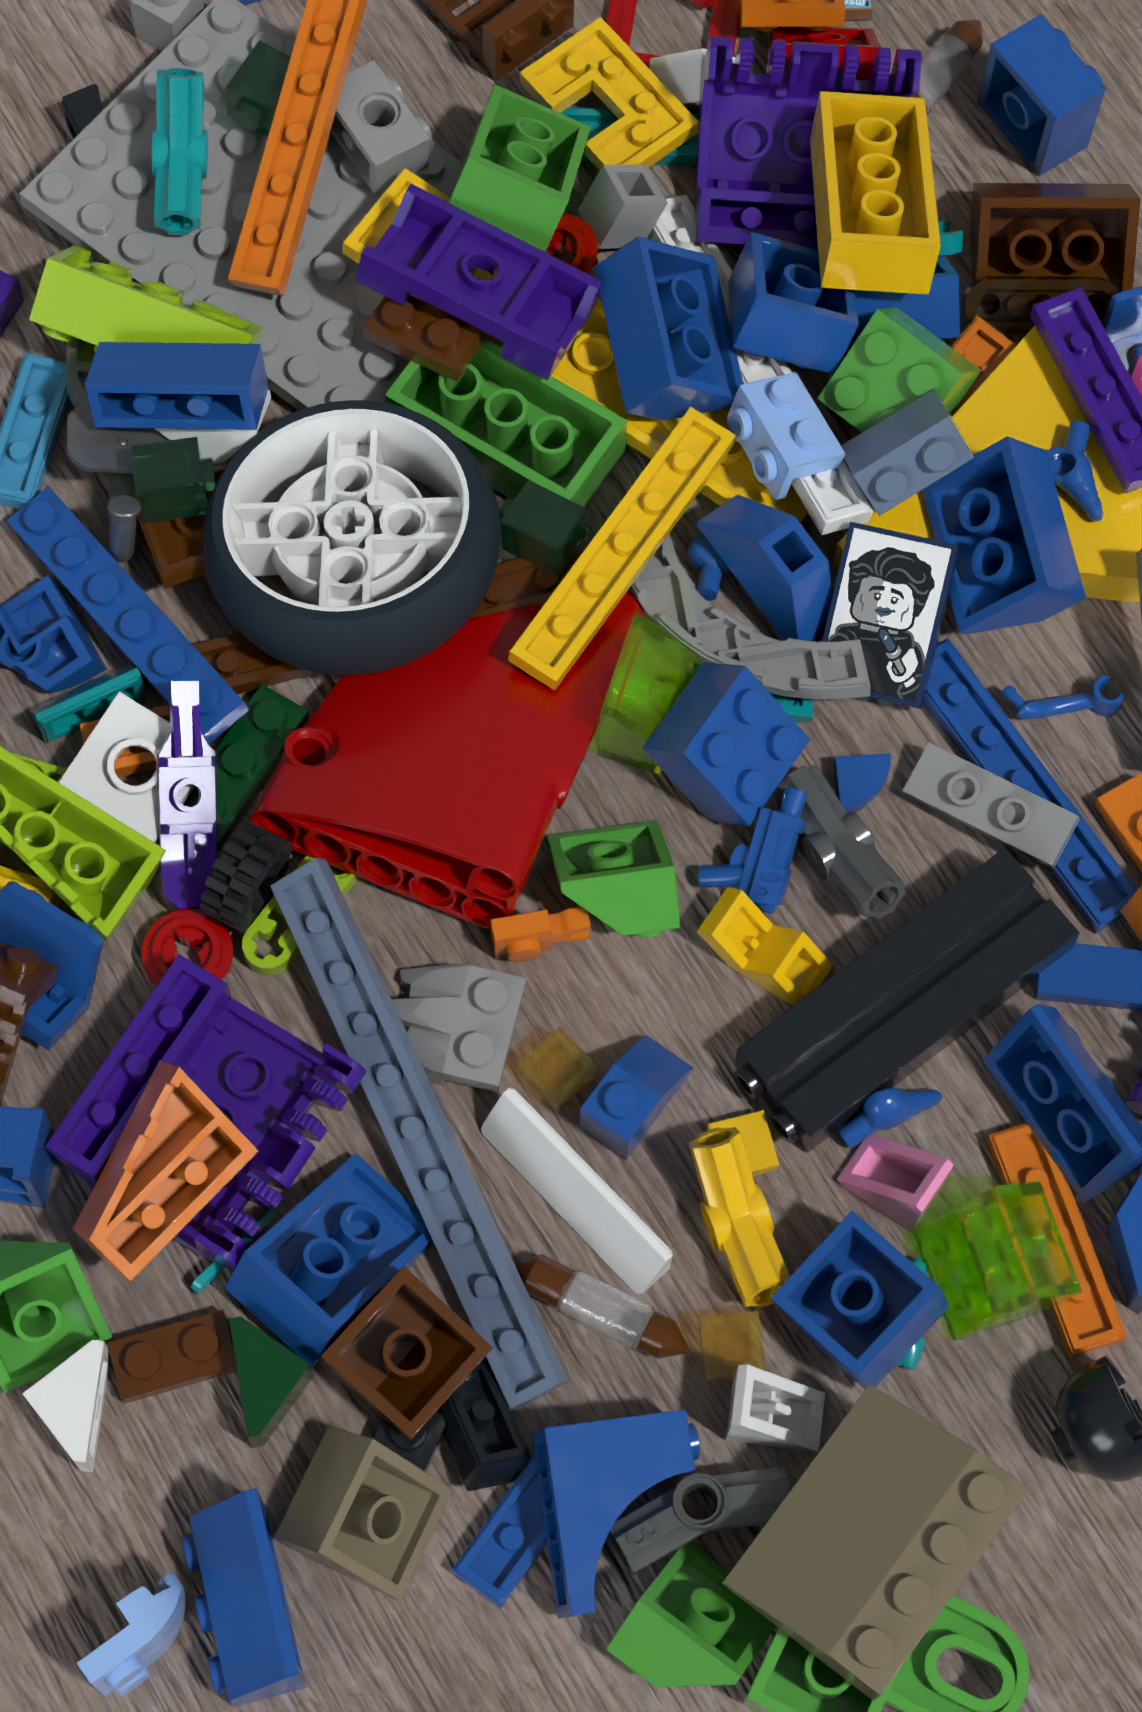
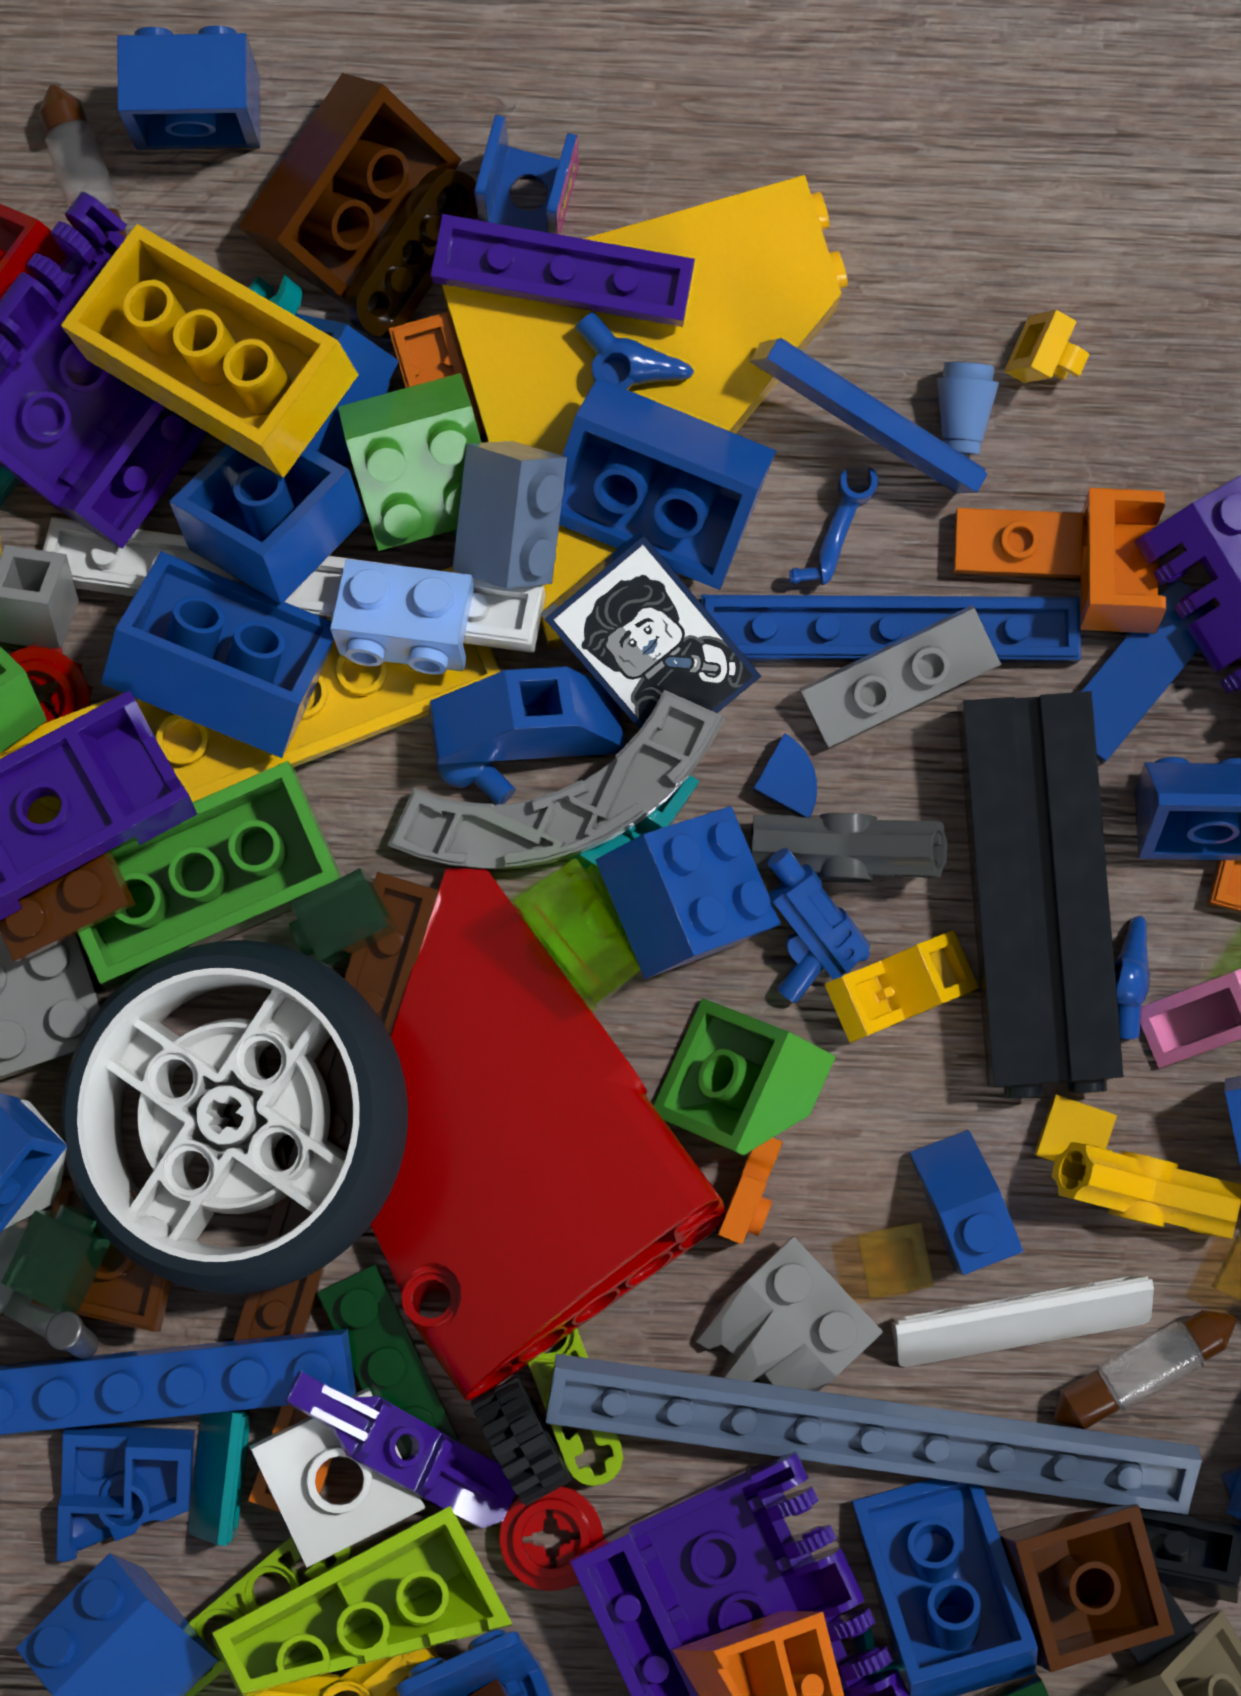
camera: 55 degrees left, 15 degrees up
(621, 548) = (420, 855): yellow plate -> none

